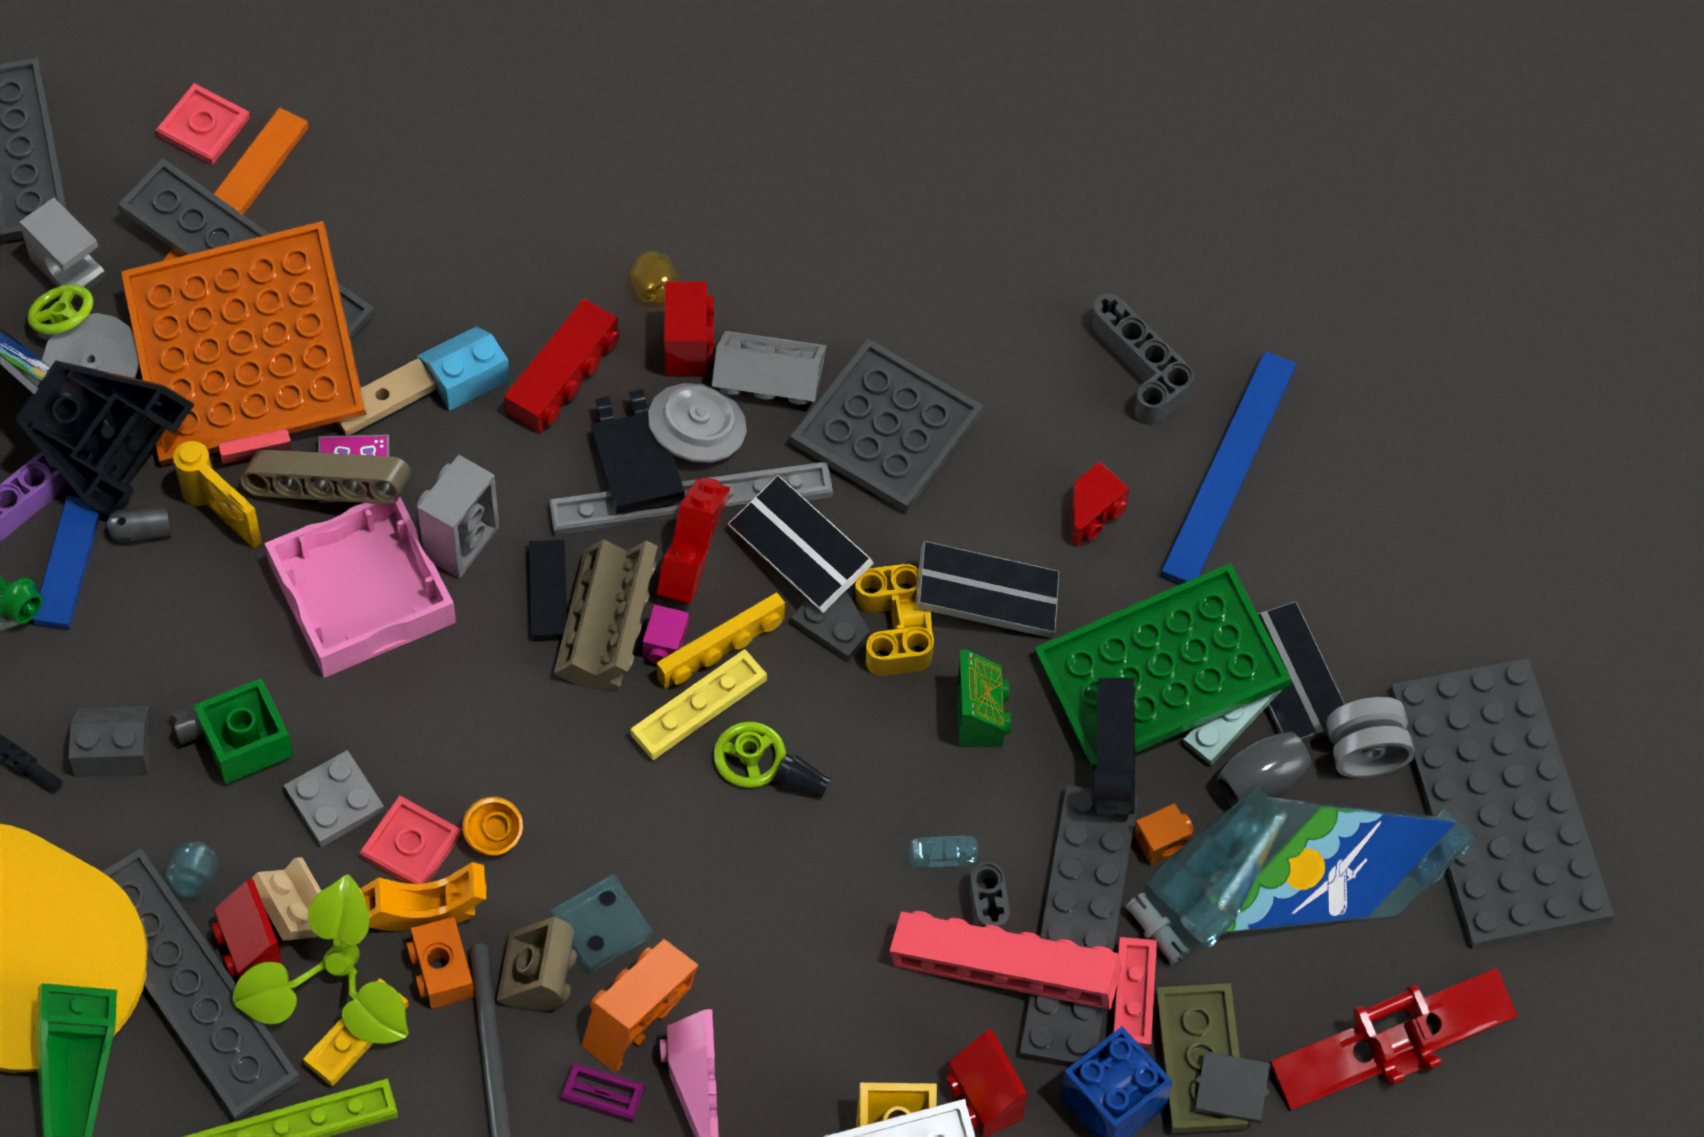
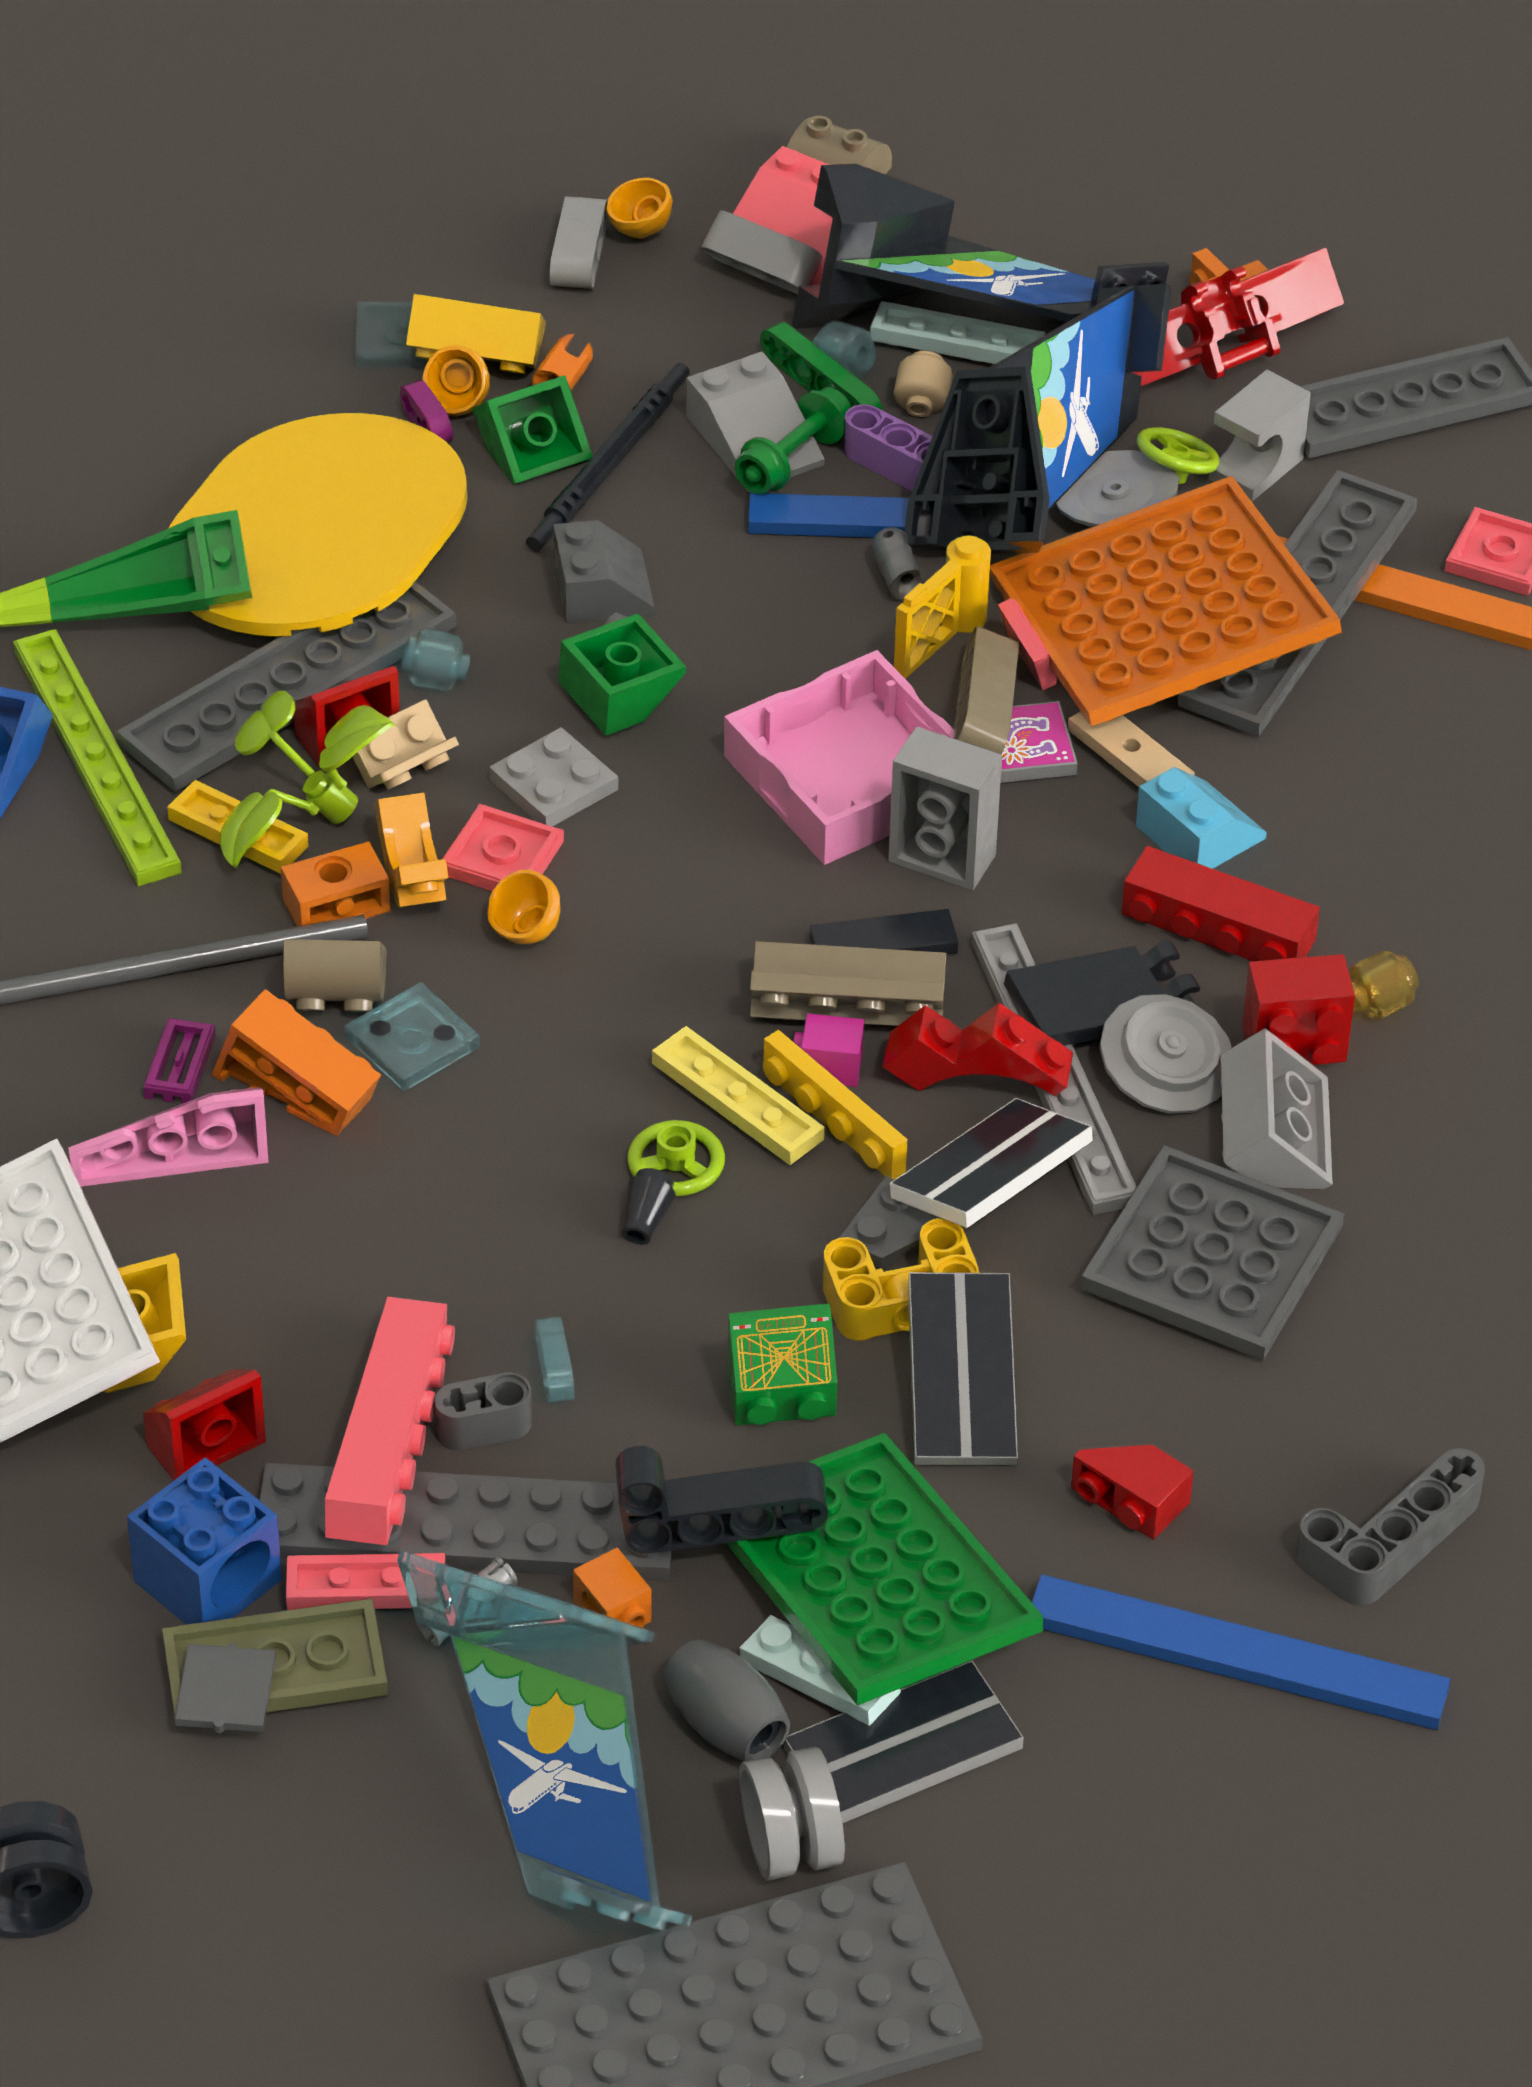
camera: 85 degrees right, 15 degrees down
(1397, 1051) = (310, 1900): red piece -> none

